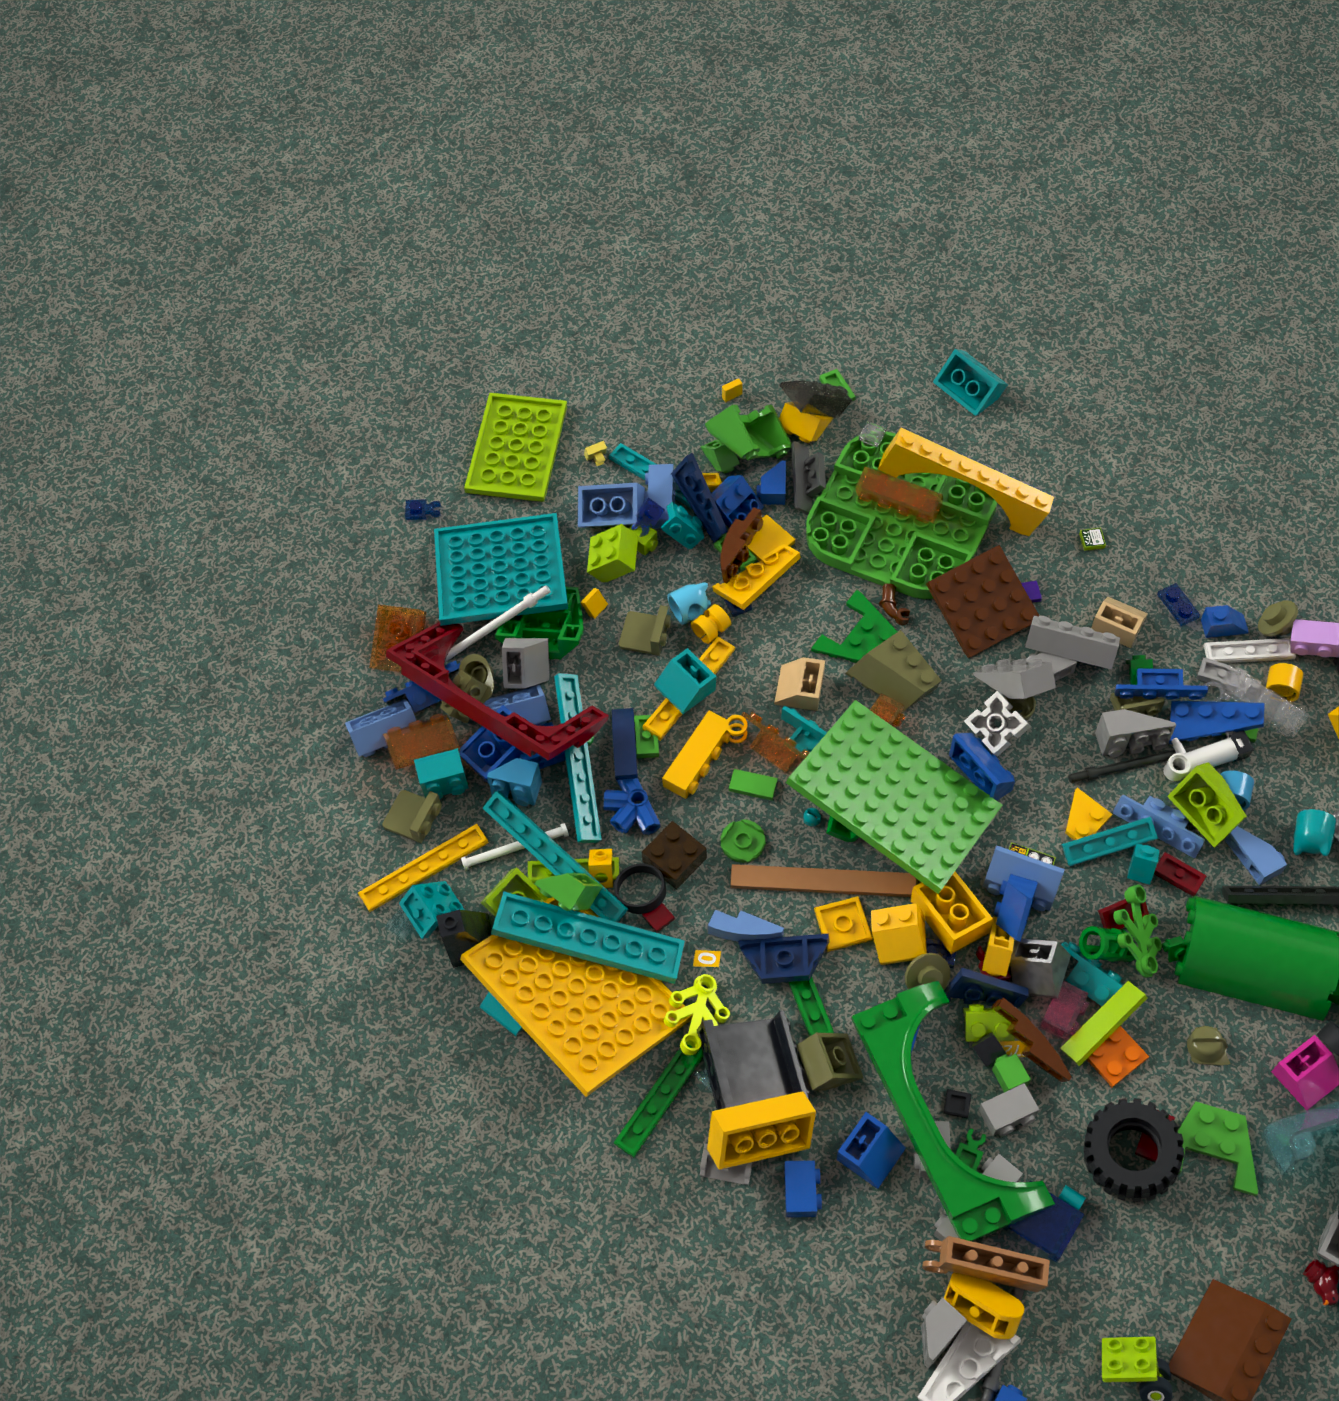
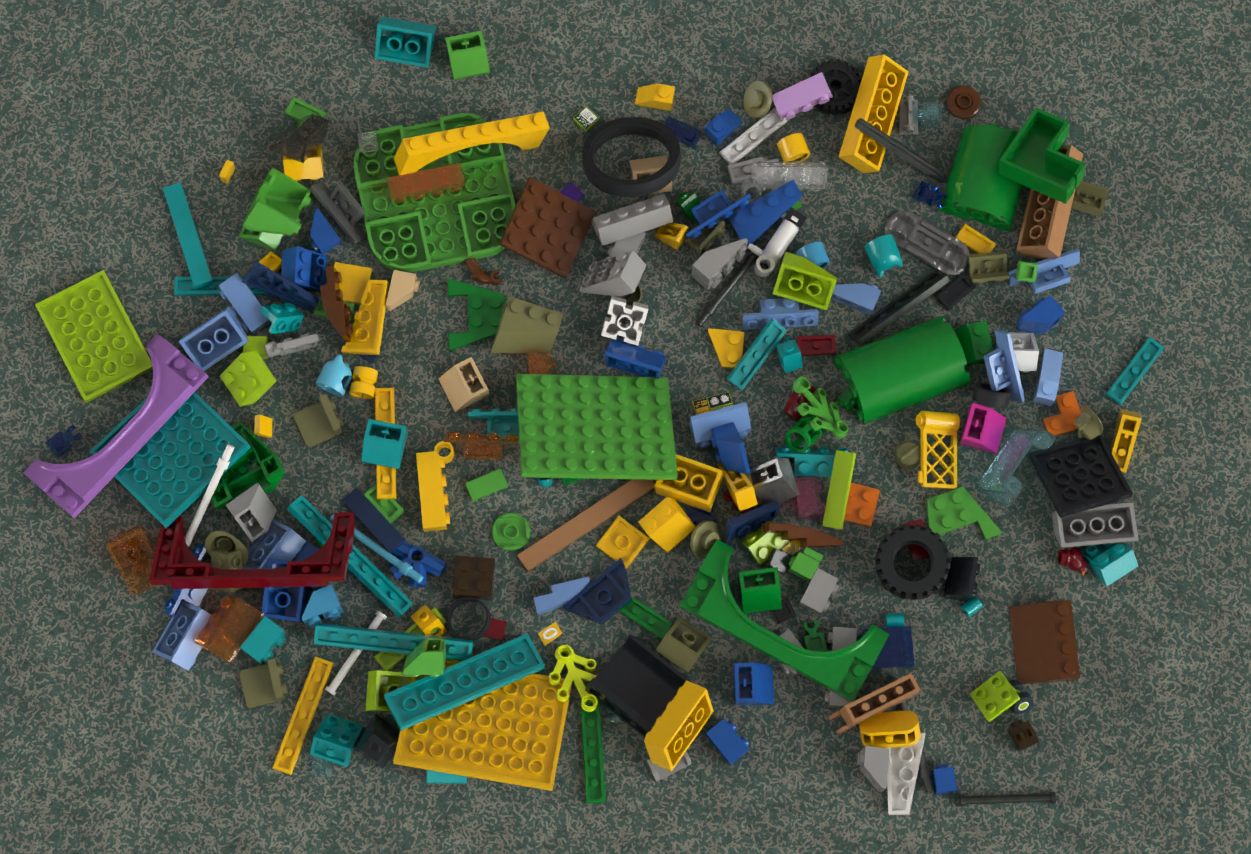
camera: 45 degrees left, 15 degrees up
(402, 542) = (79, 482): none -> medium lavender piece
(596, 452) = (163, 299): light yellow tile -> none
(616, 798) = (405, 568): none -> medium azure bar
(649, 515) = (253, 329): clear blue plate -> none
(658, 418) = (187, 235): none -> teal tile
(672, 553) = (290, 346): none -> light grey hinge
(807, 570) = (401, 288): none -> tan slope
(947, 1063) = (759, 590): none -> green slope
(1019, 422) = (467, 55): none -> bright green slope
(1030, 1069) = (813, 554): none -> bright green tile
(1102, 683) = (672, 234): none -> yellow slope
(1104, 612) = (634, 187): none -> black tyre
(1169, 1246) = (971, 606): none -> teal hinge
(1173, 1209) = (961, 578): none -> black slope
(1176, 559) = (655, 96): none -> yellow slope
(1257, 1032) = (938, 424): none -> yellow piece

